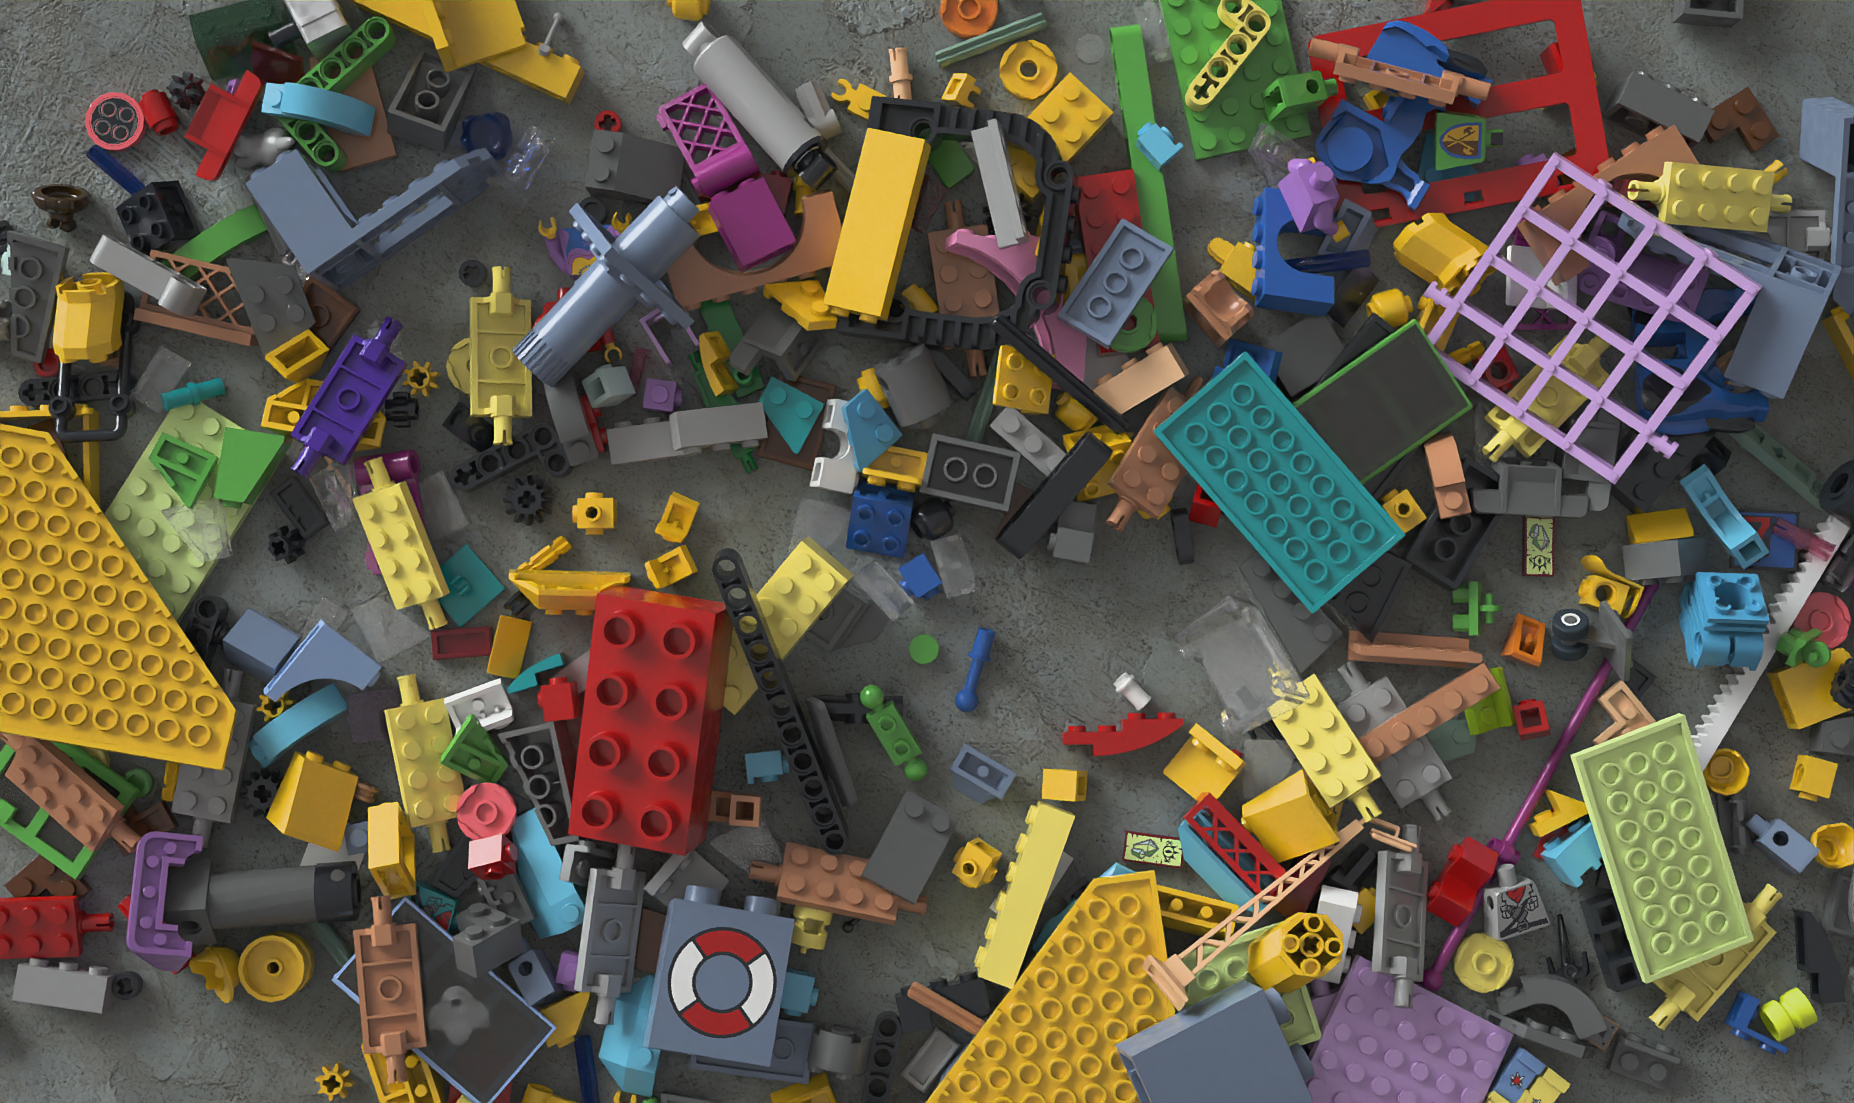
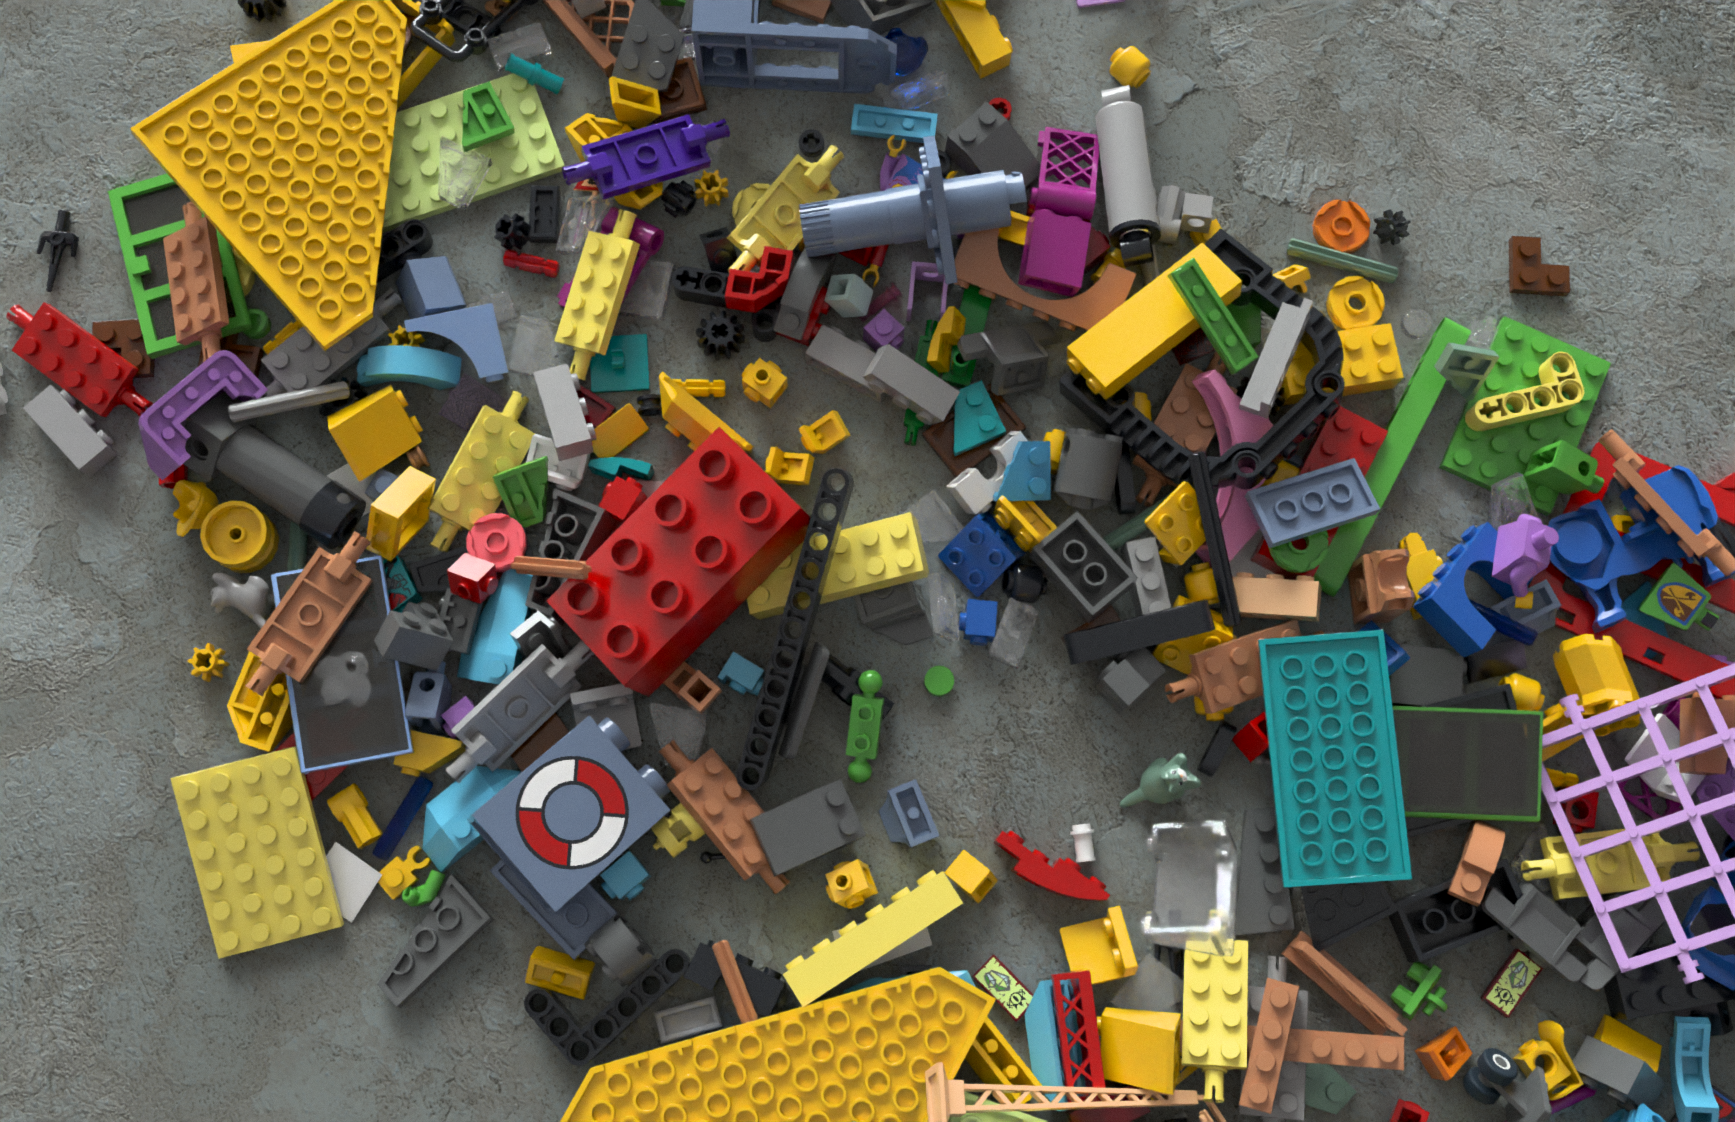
camera: 35 degrees right, 10 degrees down
(136, 984) = (109, 463): black bush -> none
(227, 832) = (288, 401): none -> light grey axle
(247, 464) = (532, 150): bright green slope -> none
(323, 558) = (531, 263): none -> red axle
(328, 1006) = (251, 598): none -> light grey animal
(455, 665) = (565, 411): none -> light grey brick
(529, 204) = (885, 122): none -> medium azure plate
(532, 447) = (753, 290): none -> red brick
(544, 49) = (994, 20): light grey hinge -> none
(551, 805) = (551, 567): none -> nougat axle
(803, 302) = (1048, 342): yellow wing -> none
(841, 92) = (1196, 213): none -> light grey bracket
(900, 73) = (1252, 234): light nougat pin -> none
(922, 189) = (1212, 316): none -> bright green tile
(966, 699) = (943, 747): blue pin -> none
(1157, 145) = (1421, 427): medium azure brick -> none
(1158, 65) = (1466, 367): none -> sand green wing
(1159, 597) = (1163, 782): none -> sand green animal
(1386, 743) = (1269, 1045): none -> nougat arch
(1402, 509) = (1422, 865): yellow brick -> none
(1493, 710) = (1377, 1087): lime bracket -> none

